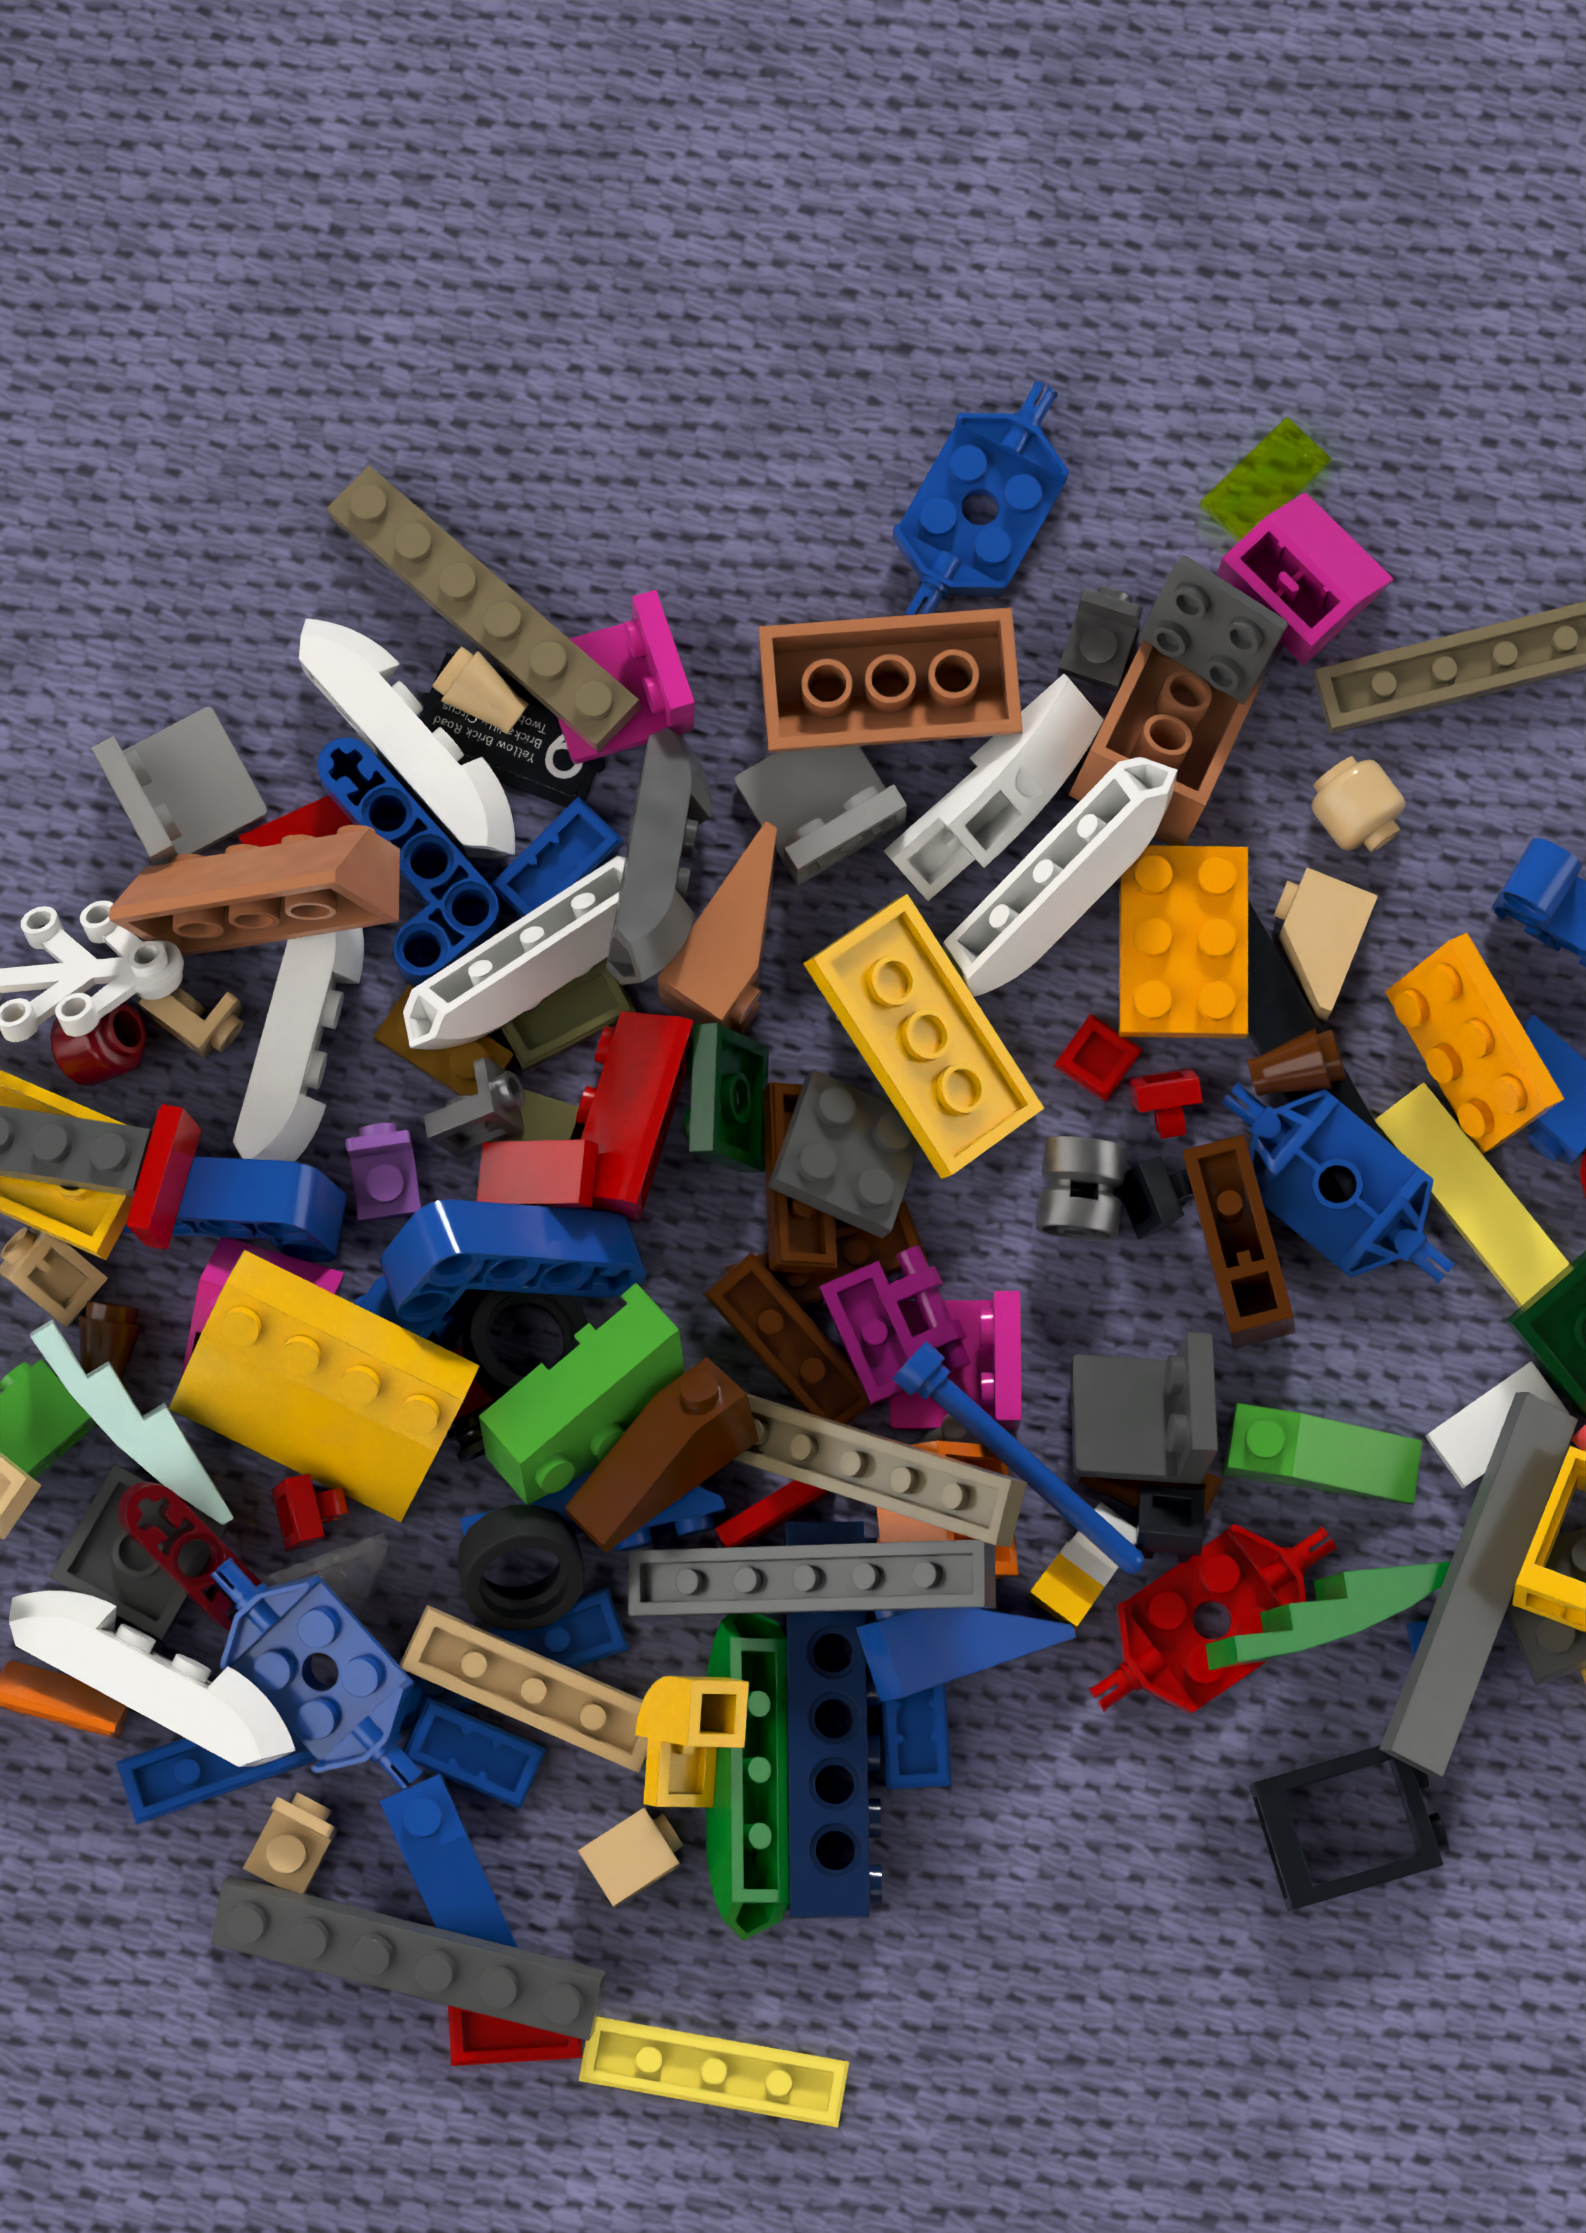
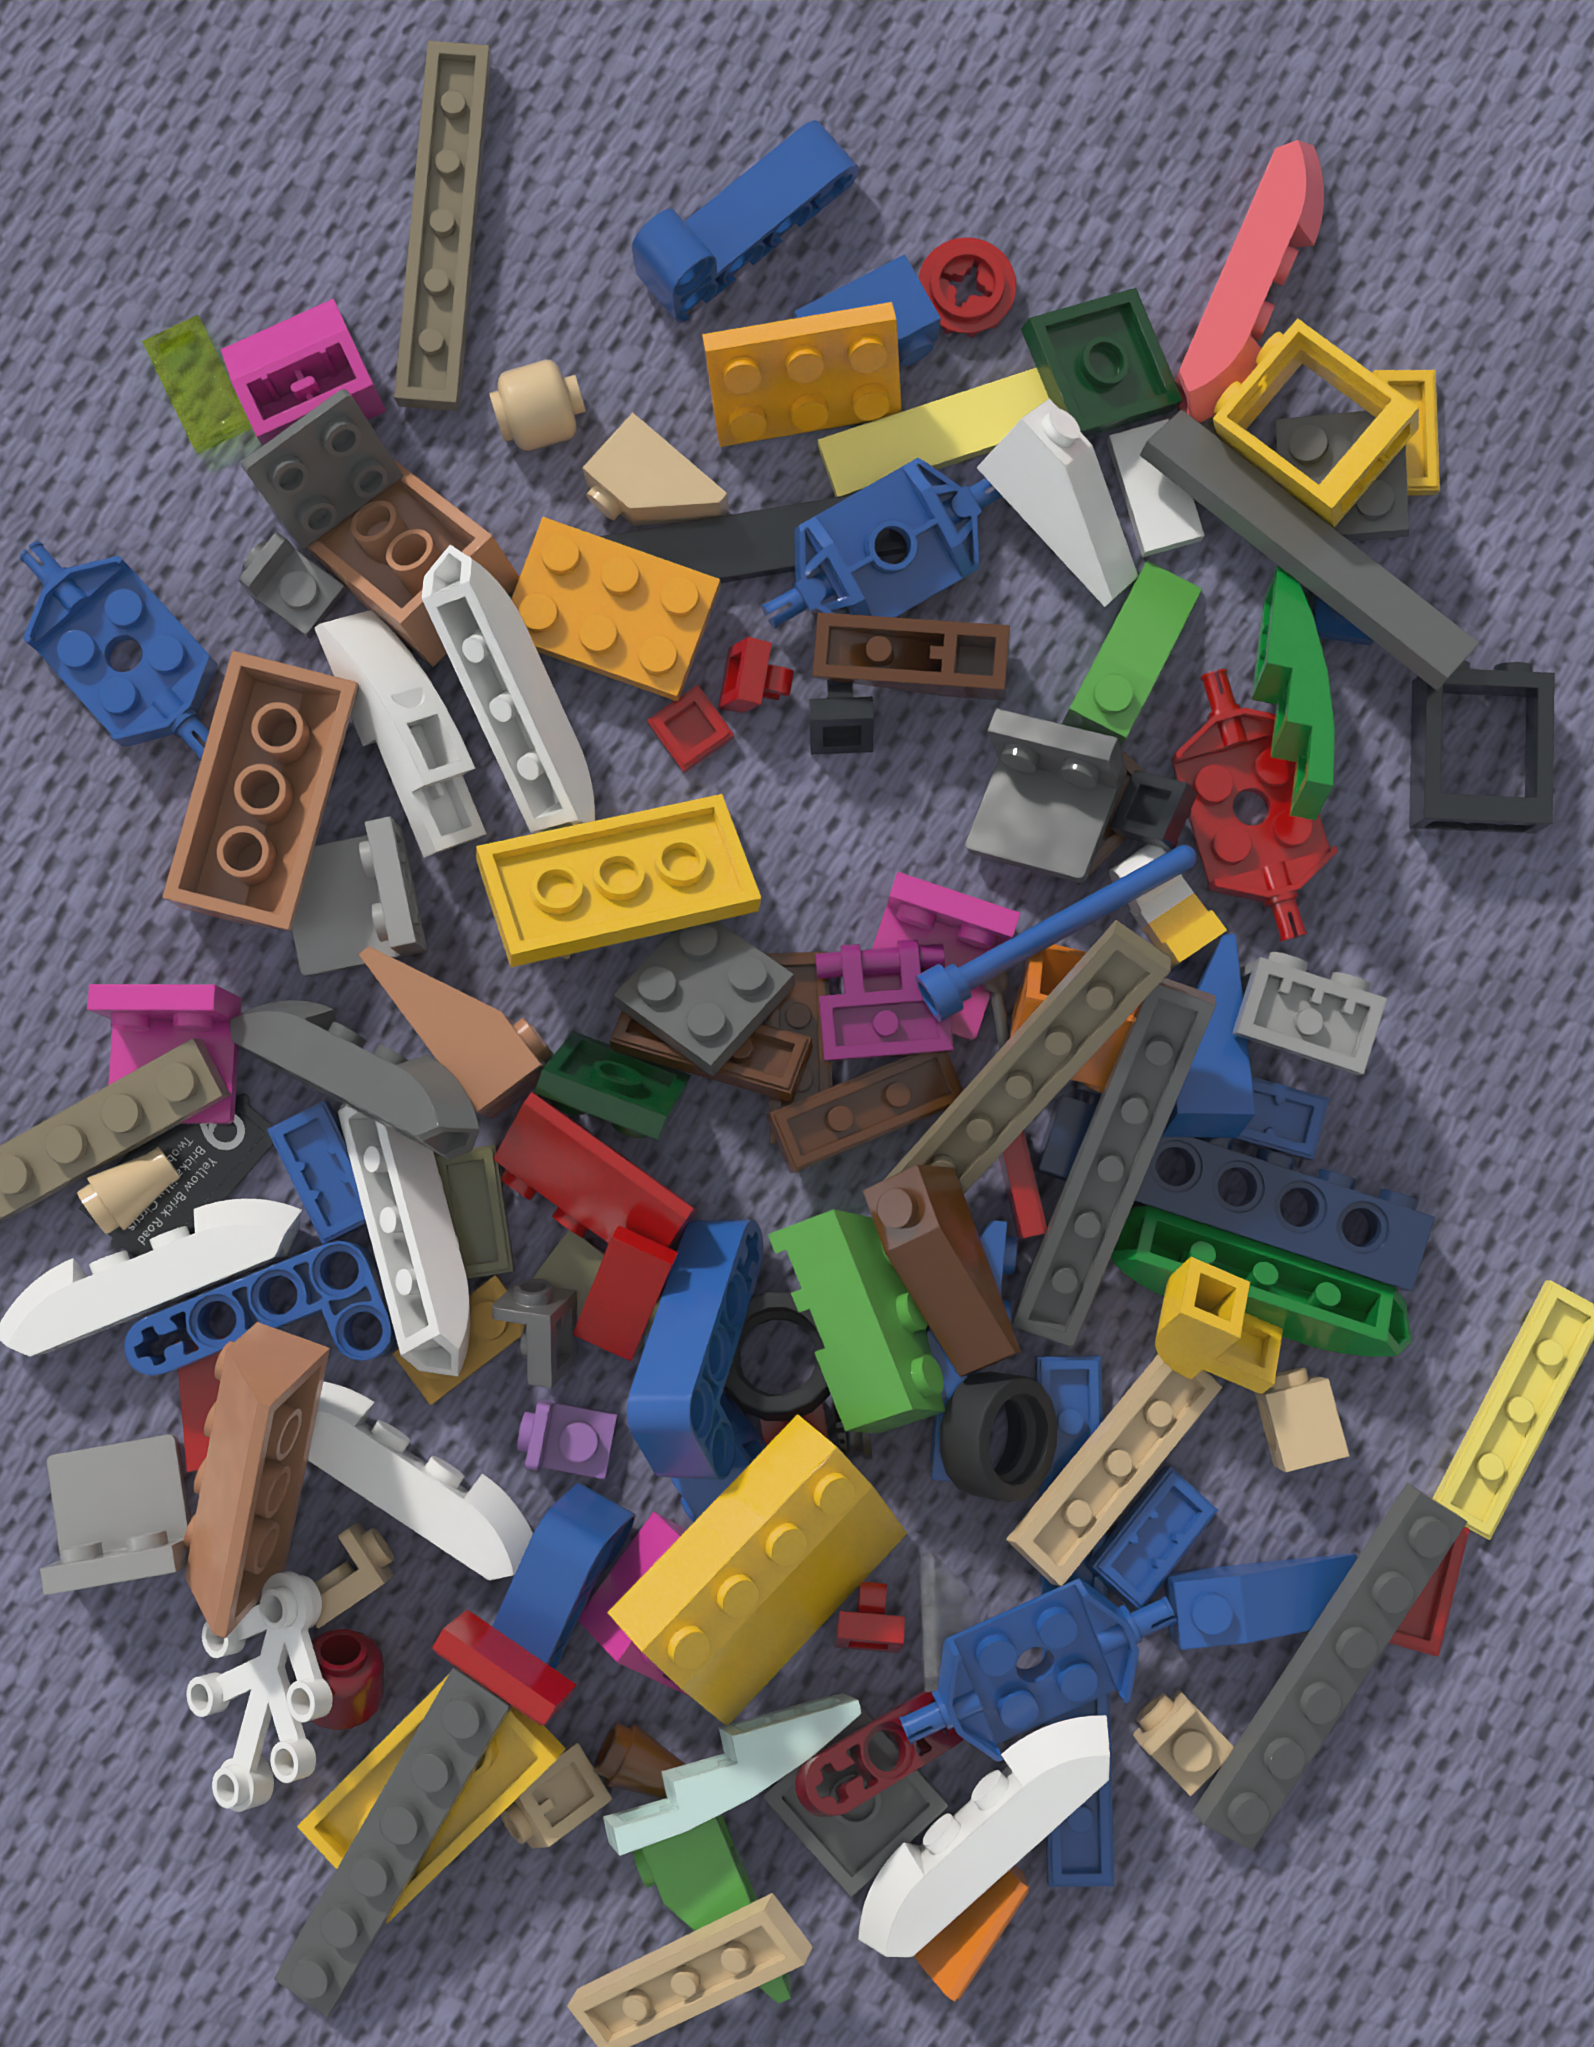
camera: 70 degrees left, 5 degrees up
(1016, 1720) = (1308, 1014): none -> light grey bracket
(1086, 1167) = (791, 774): flat silver wheel -> none
(1298, 1065) = (766, 541): reddish brown cone -> none
(1445, 1335) = (1060, 491): none -> white slope

